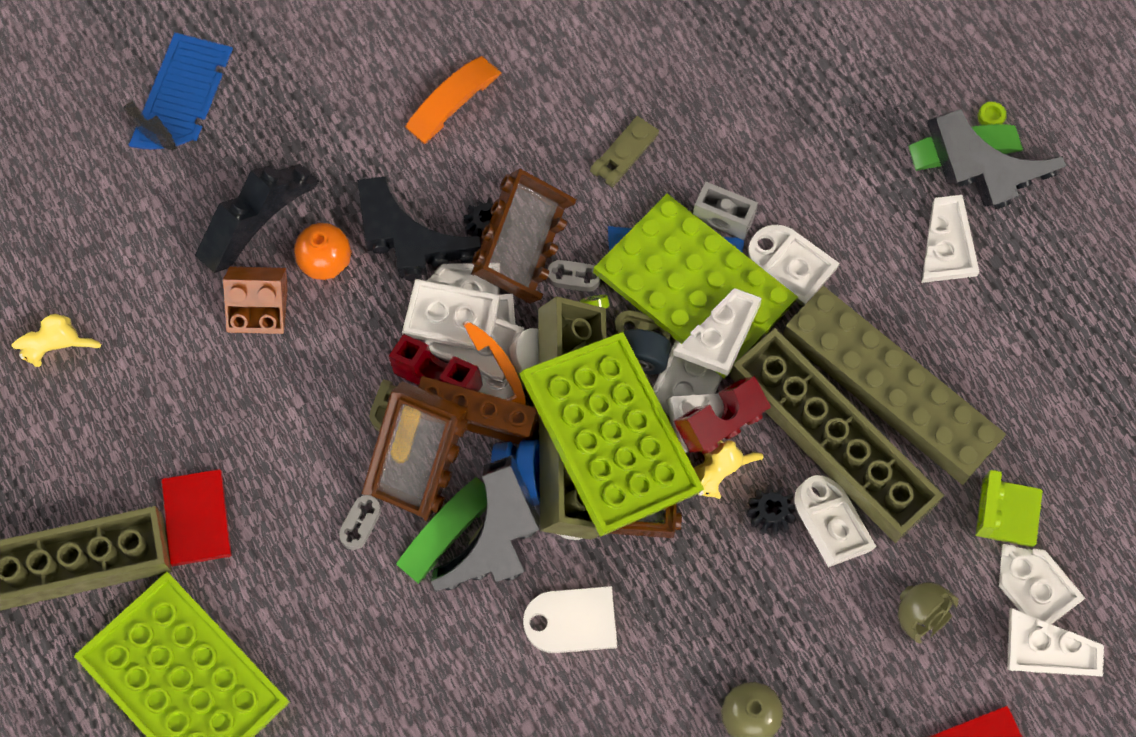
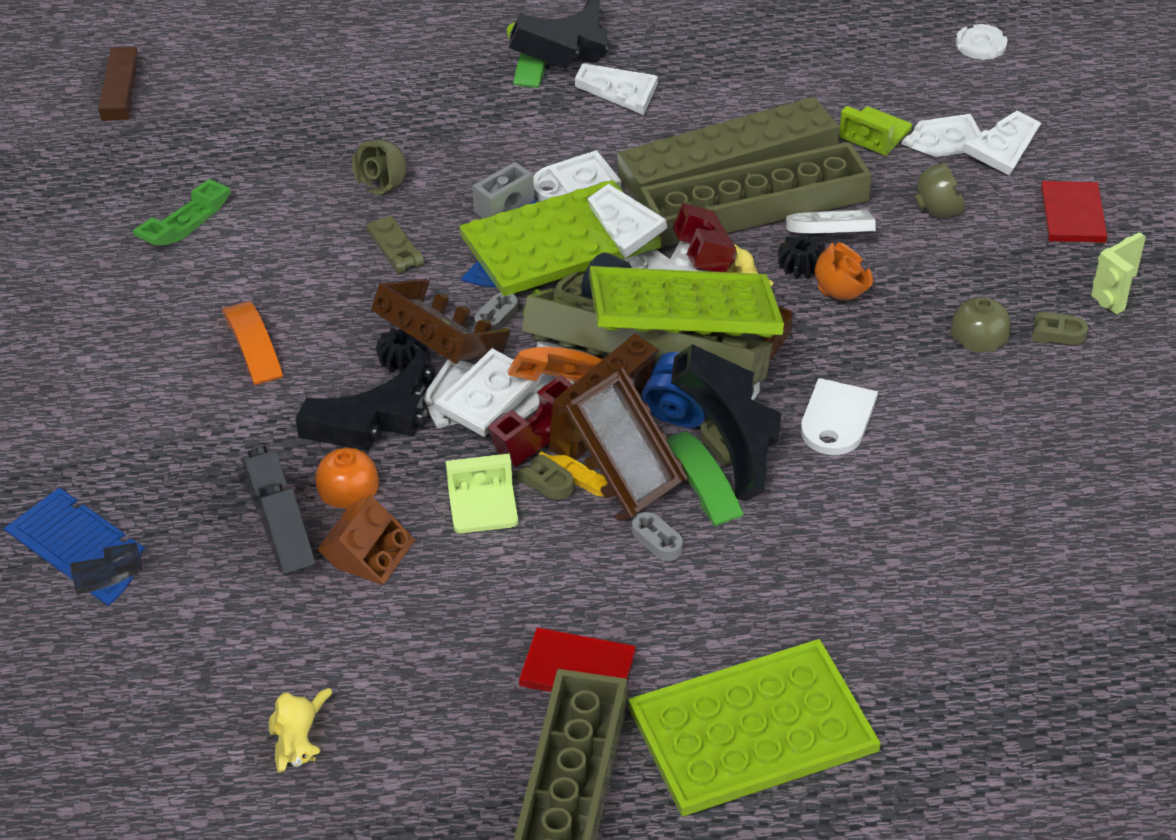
camera: 65 degrees left, 25 degrees down
(341, 365) = (481, 493): none -> yellowish green bracket
(715, 89) = (382, 161): none -> olive cylinder
(754, 558) = (841, 274): none -> orange cylinder

